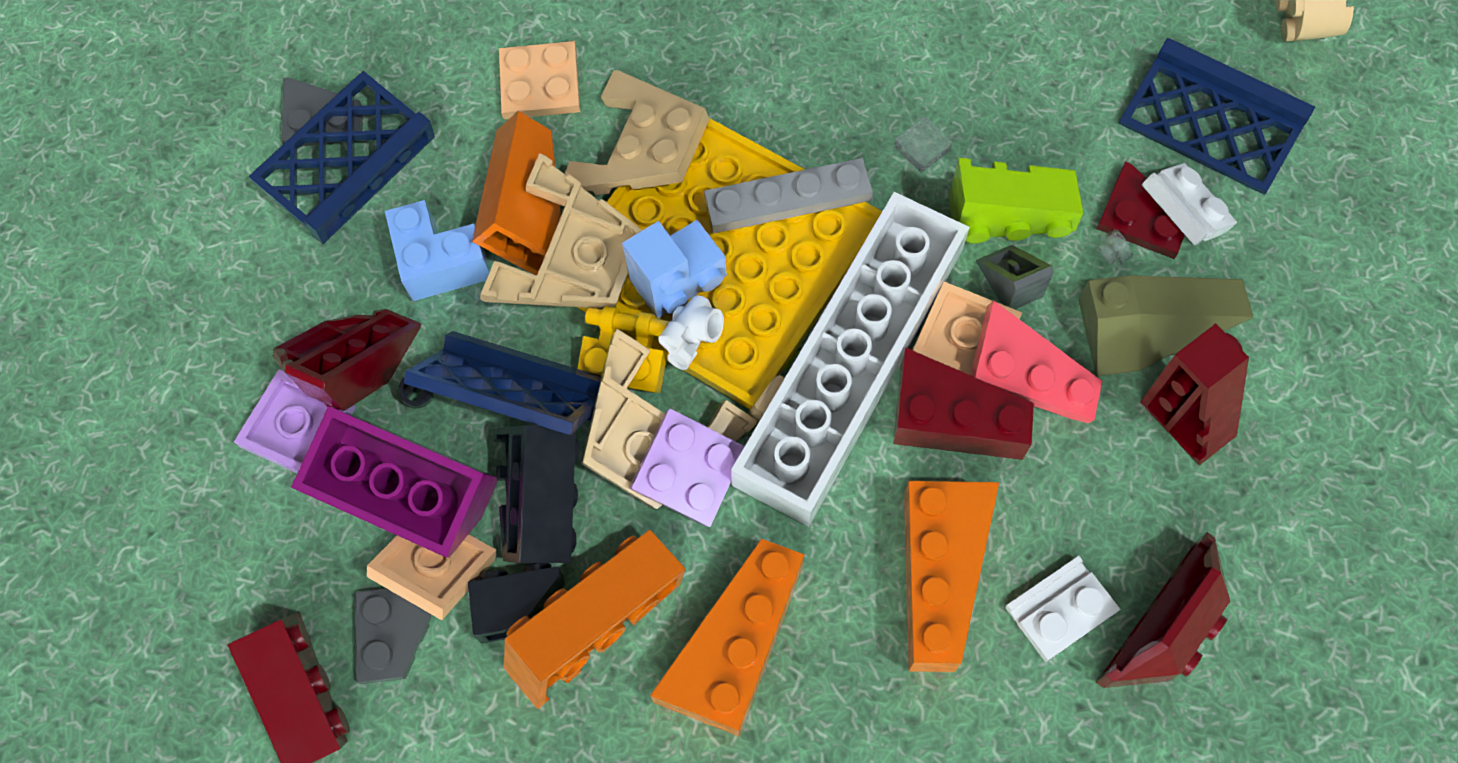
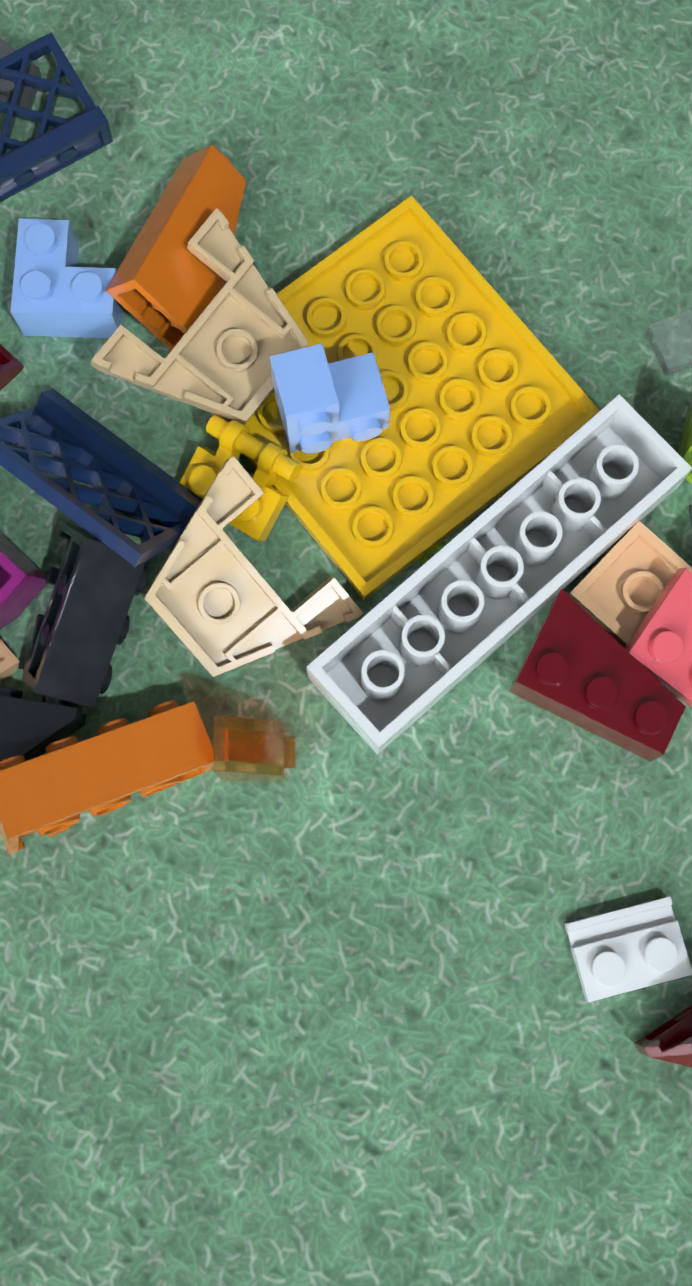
camera: 15 degrees right, 10 degrees up
(539, 79) = (256, 109): light nougat plate -> none
(654, 142) = (360, 236): tan wing -> none
(687, 468) = (261, 642): lavender plate -> none
(688, 328) = (323, 477): white plate -> none
(709, 552) = (252, 750): none -> clear orange slope
(729, 651) = (237, 867): orange wedge -> none
(765, 399) = (375, 596): tan tile -> none
(788, 195) = (495, 354): light grey plate -> none
(944, 559) = (513, 851): orange wedge -> none

